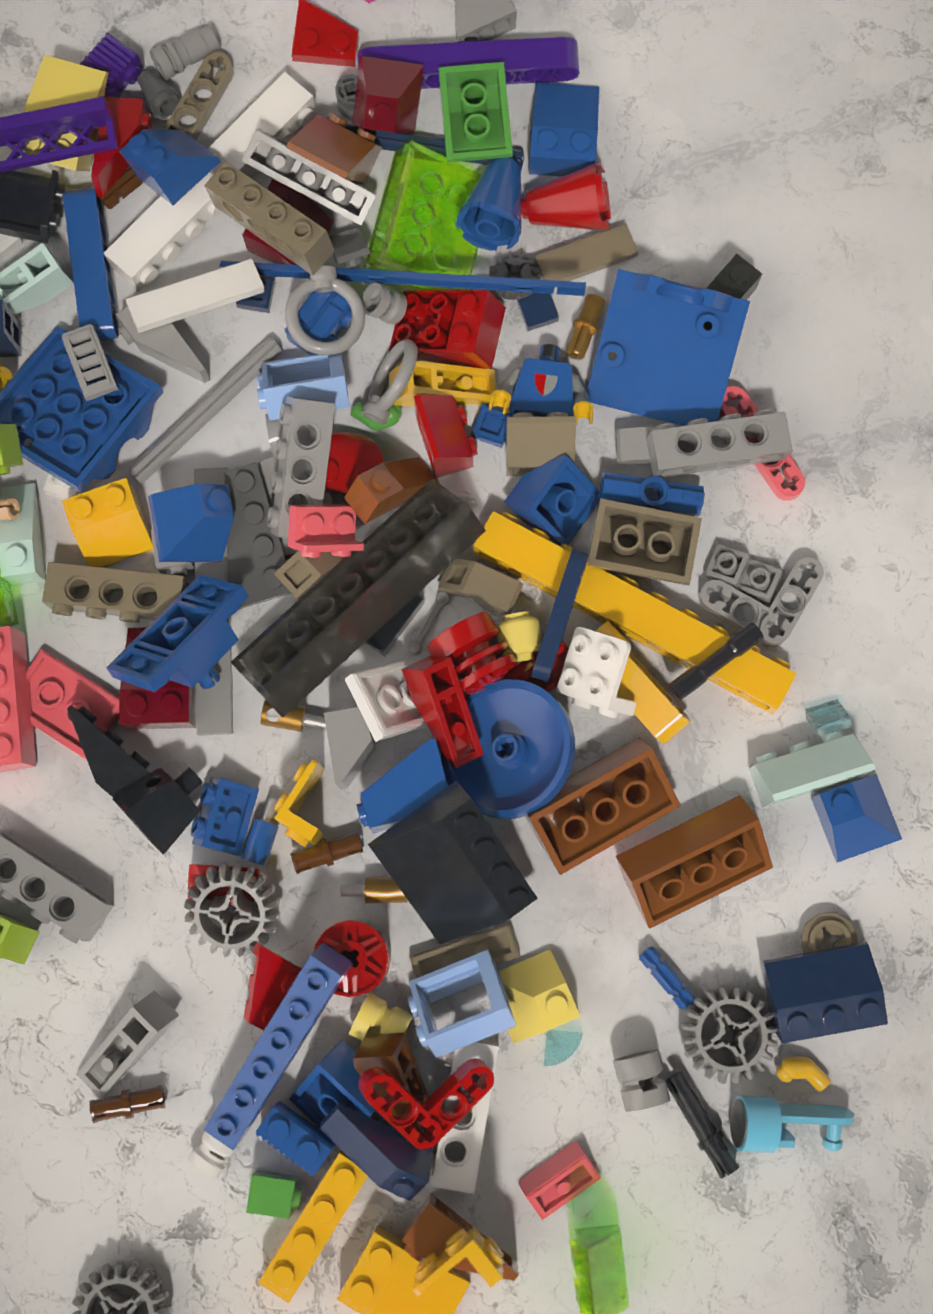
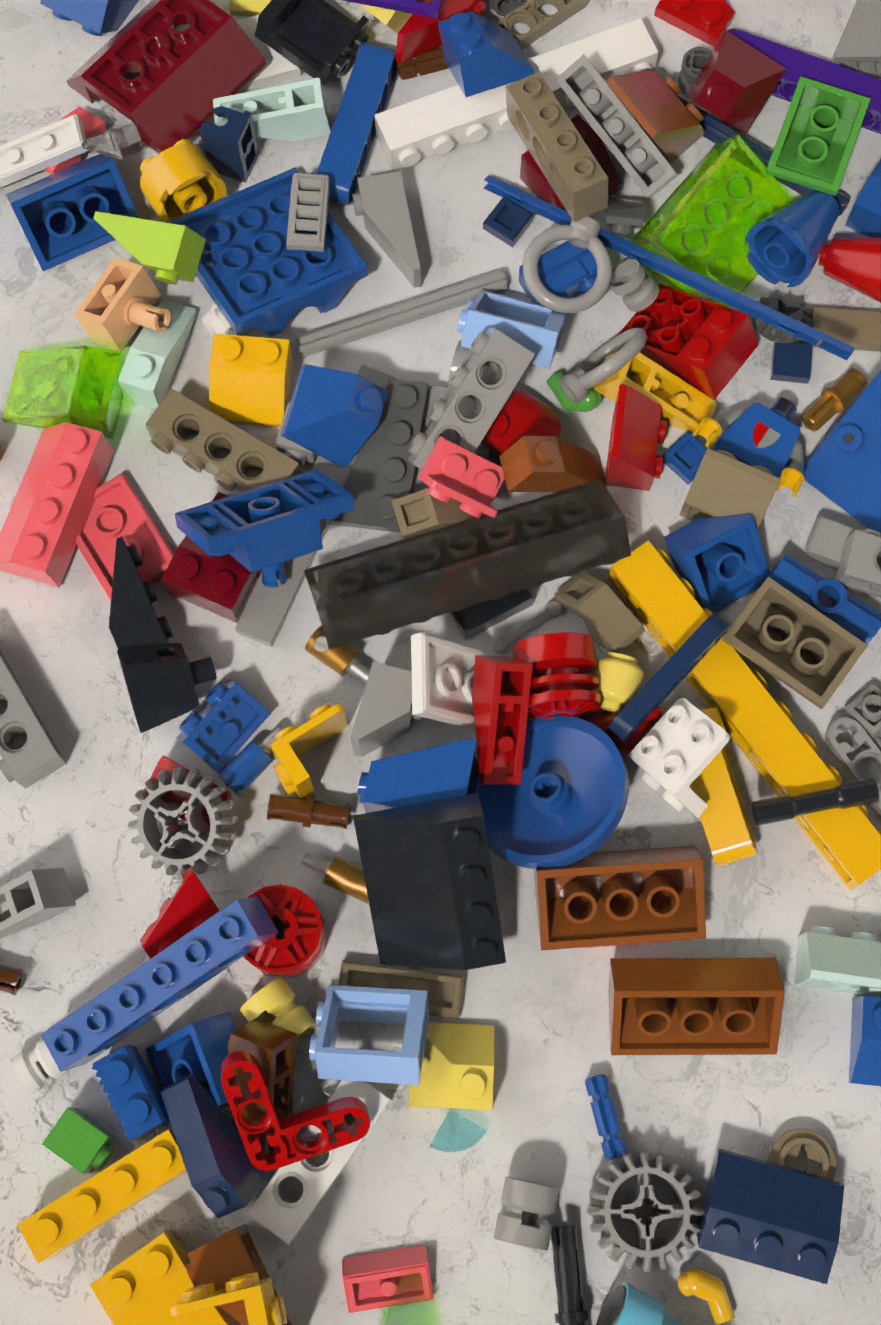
camera: 25 degrees right, 5 degrees down
(194, 295) = (445, 194): white tile -> none

